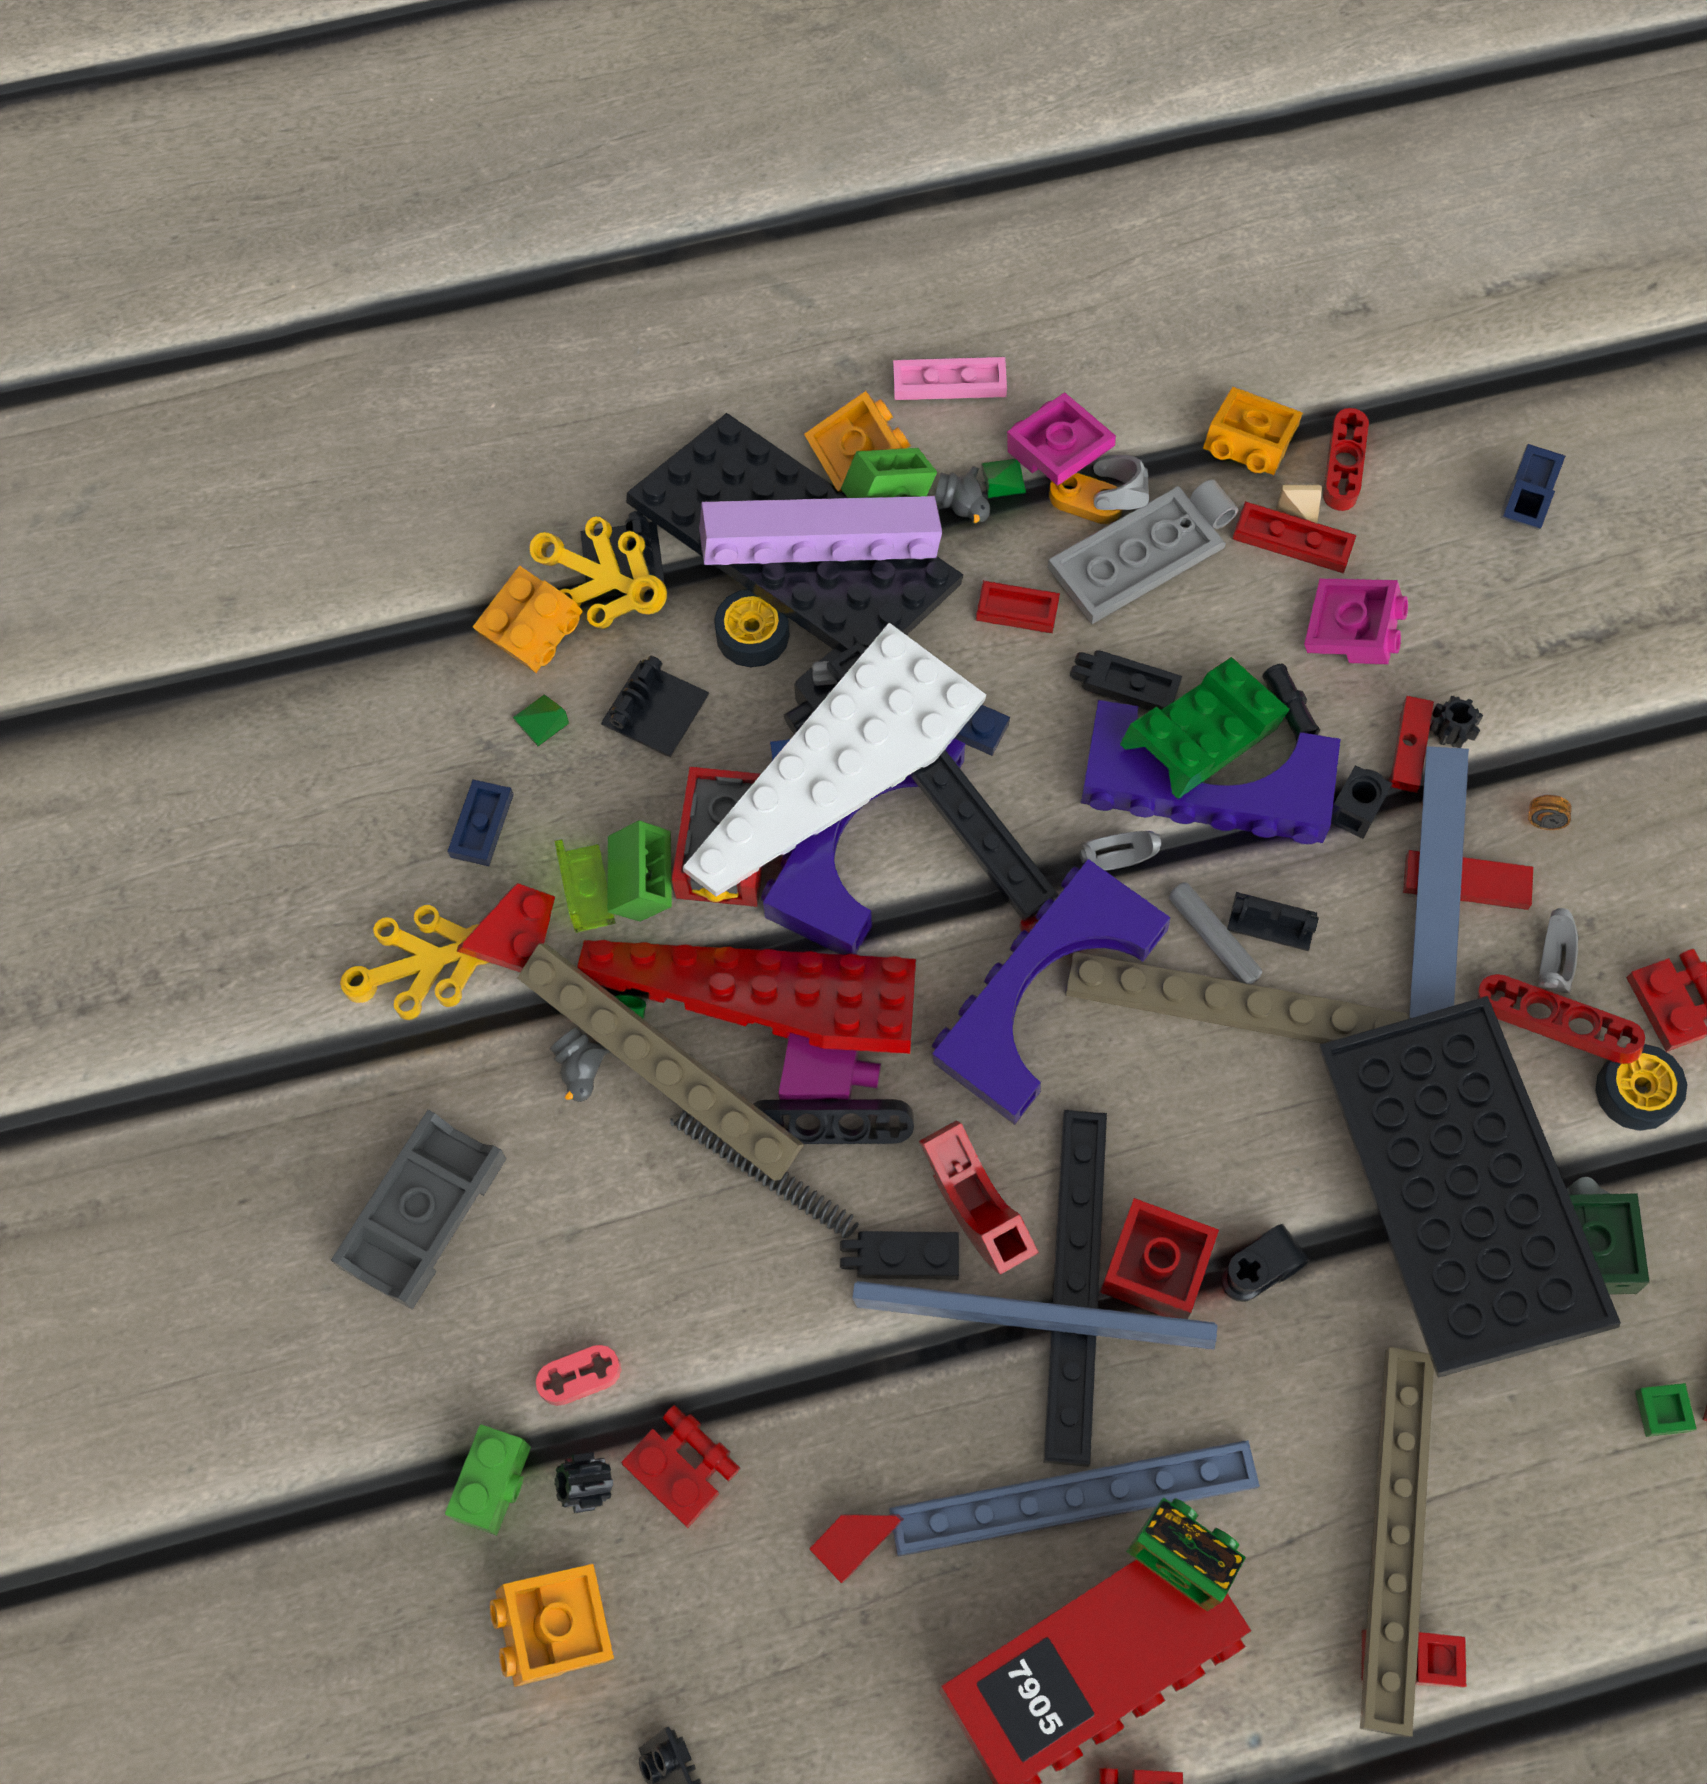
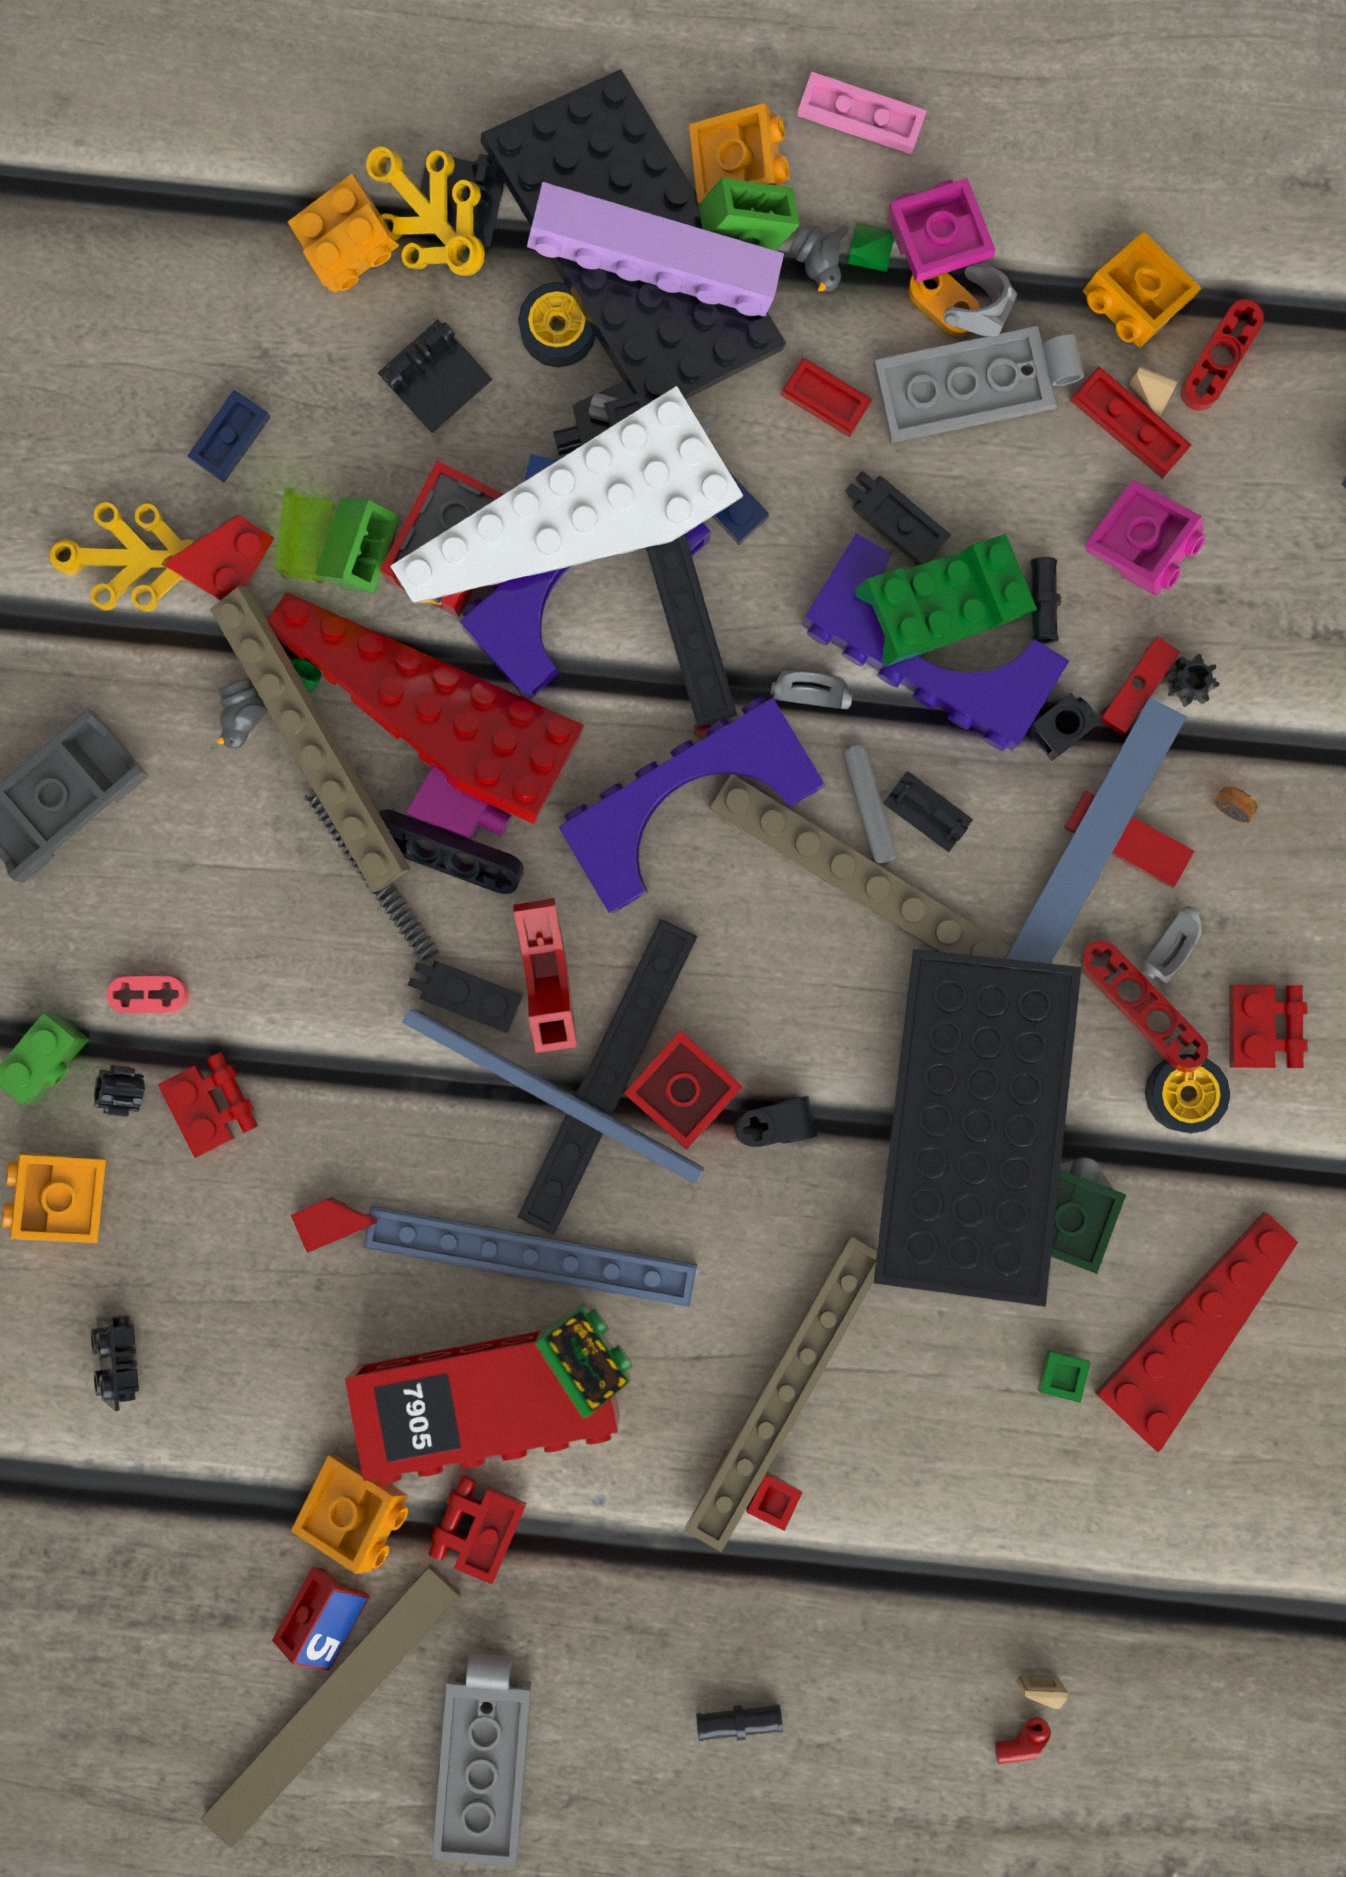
camera: 20 degrees right, 20 degrees up
(542, 719) = (322, 347): green slope -> none

